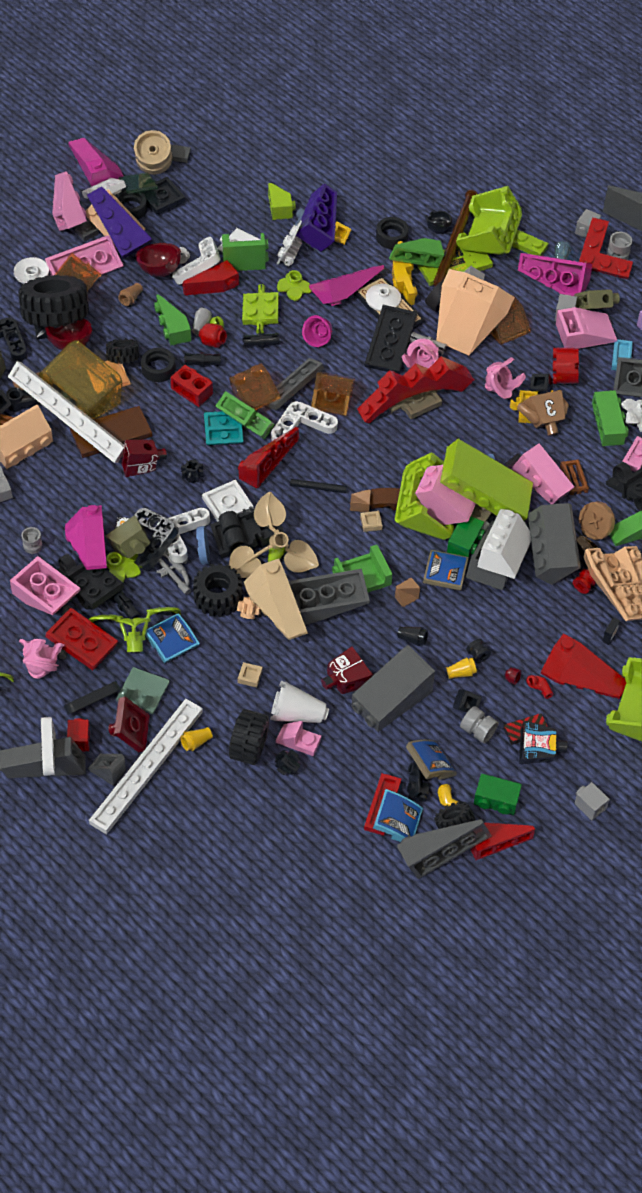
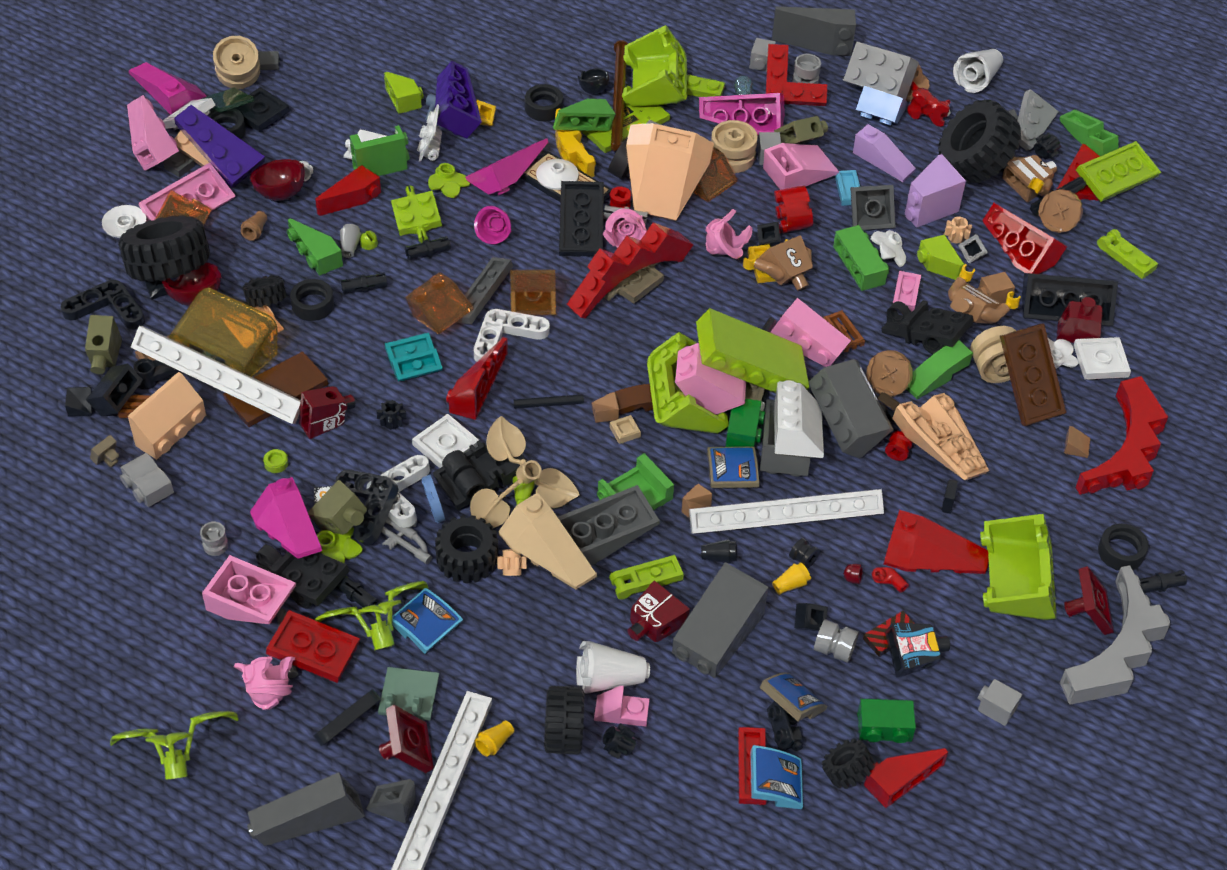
camera: 15 degrees left, 5 degrees down
(48, 736) = (310, 781): white beam -> none
(80, 732) = (343, 760): red brick -> none
(95, 489) = (275, 461): none -> lime tile
(191, 385) = (360, 315): red brick -> none
(209, 257) = (338, 168): white beam -> none
(212, 335) = (369, 253): red head -> none
(245, 415) = (437, 336): bright green slope -> none
(250, 674) = (537, 643): tan plate -> none
(360, 640) = (662, 571): none -> lime plate
(428, 328) = (620, 197): none -> red wheel
(436, 847) = (840, 803): dark grey slope -> none
(445, 795) = (824, 738): yellow arm -> none
(476, 614) = (786, 511): none -> white plate
(537, 300) = (737, 143): none -> tan wheel

